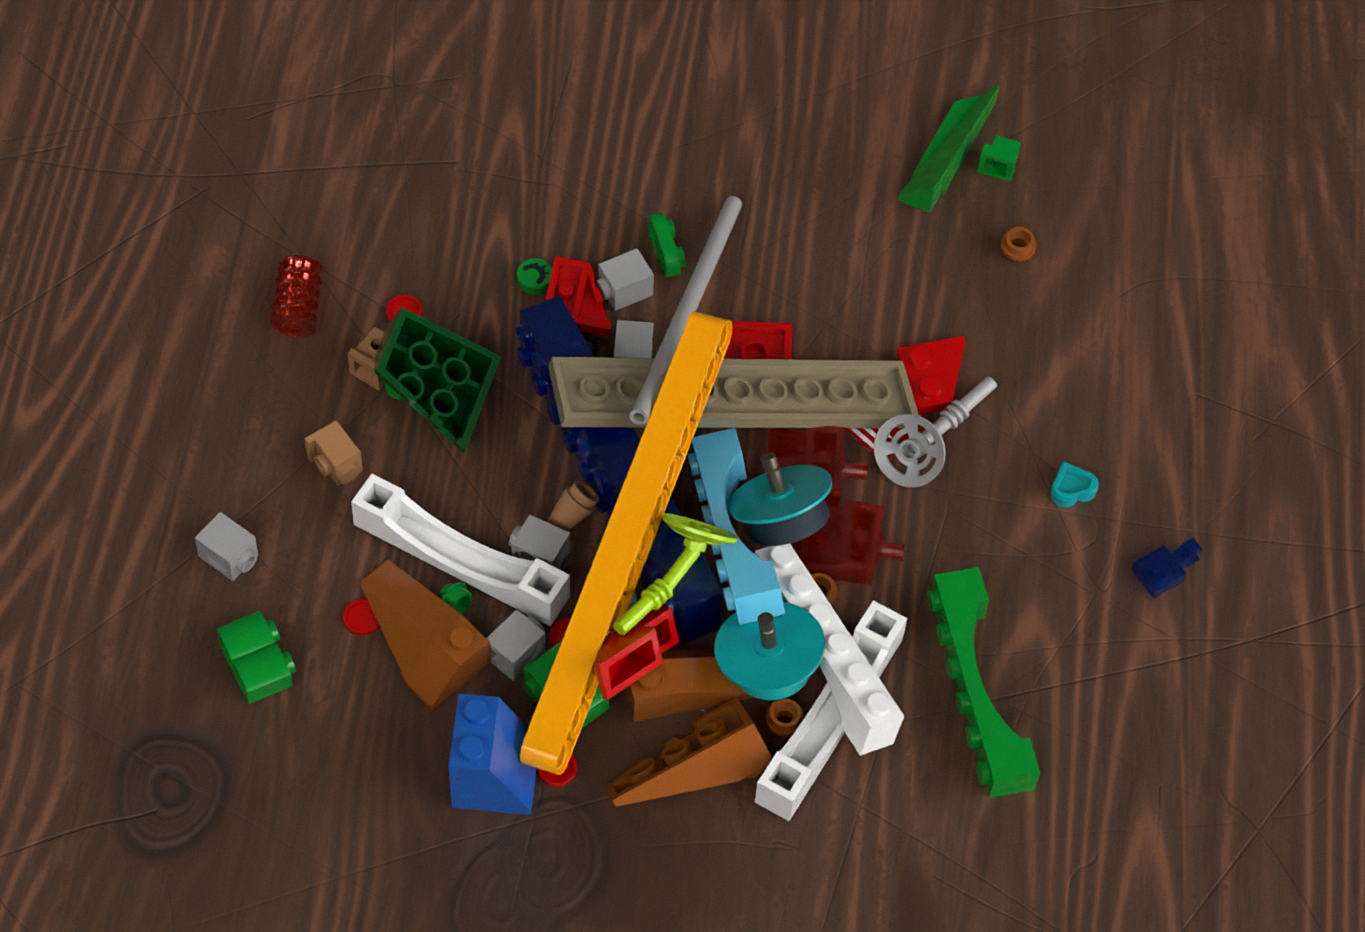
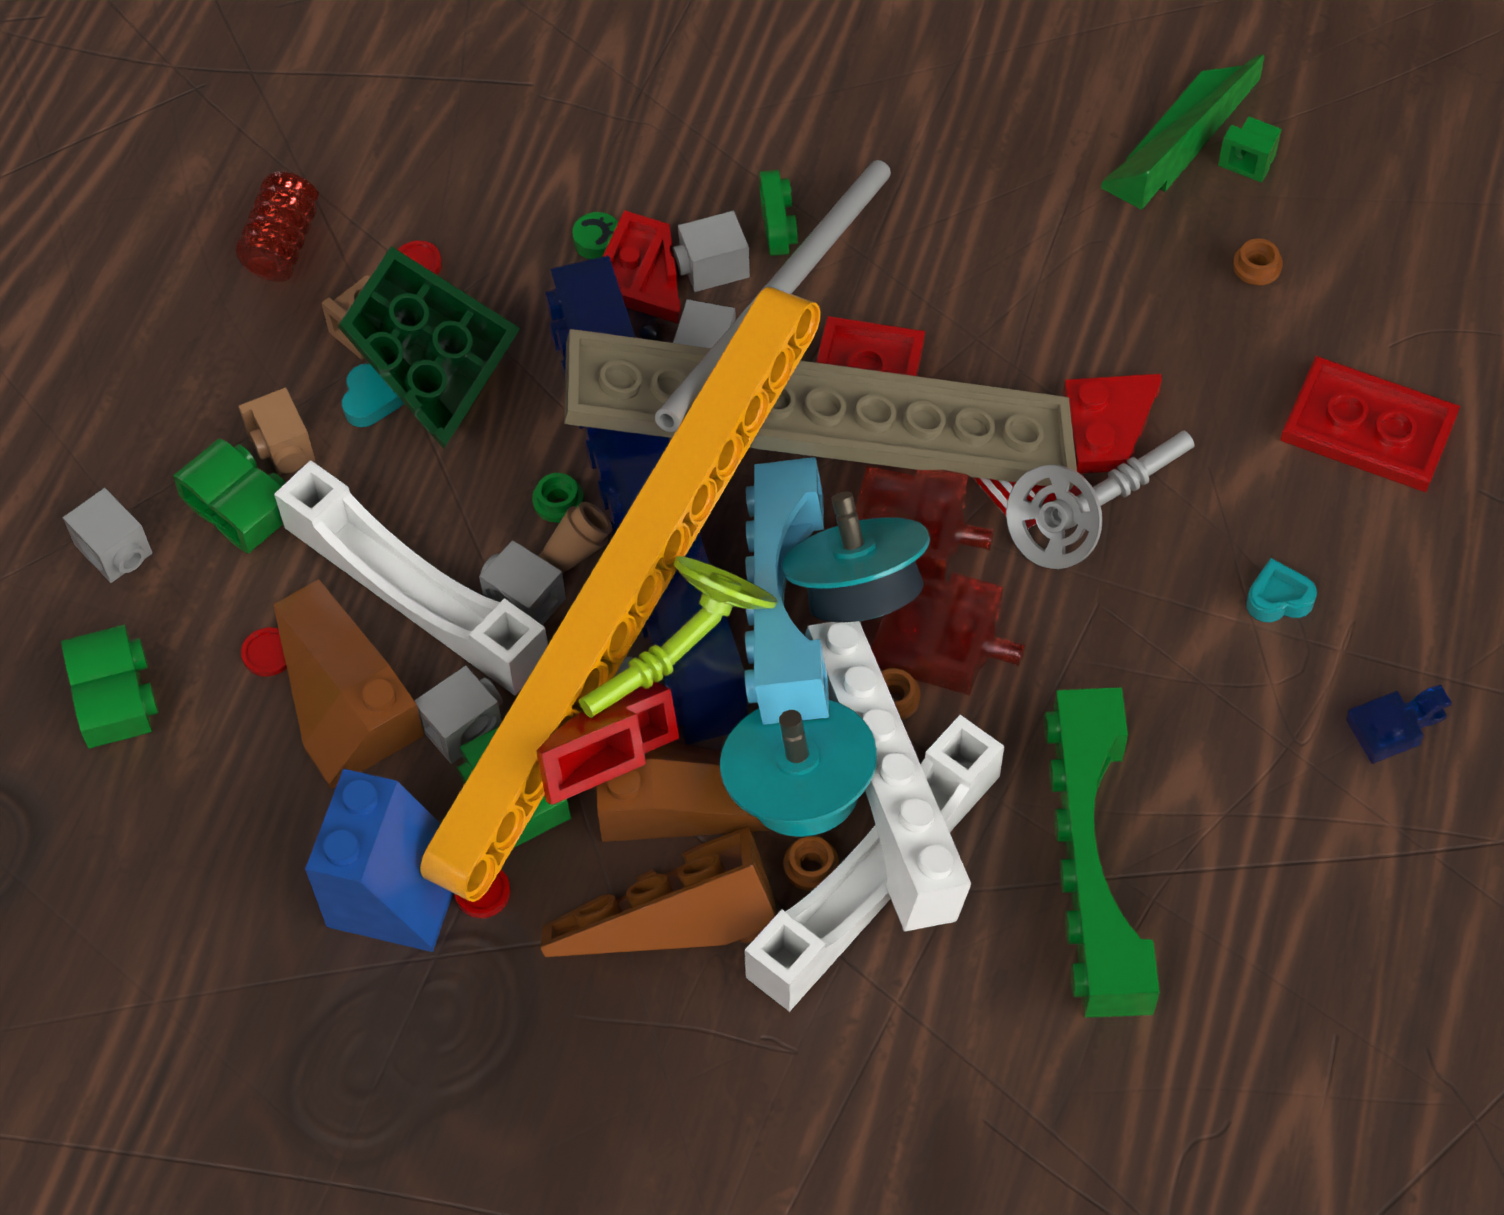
camera: 15 degrees right, 0 degrees up
(312, 504) = (232, 493): none -> green brick
(393, 418) = (368, 397): none -> teal tile
(456, 596) = (394, 641): green plate -> none
(553, 470) = (553, 487): none -> green plate
(1115, 355) = (1370, 423): none -> red tile

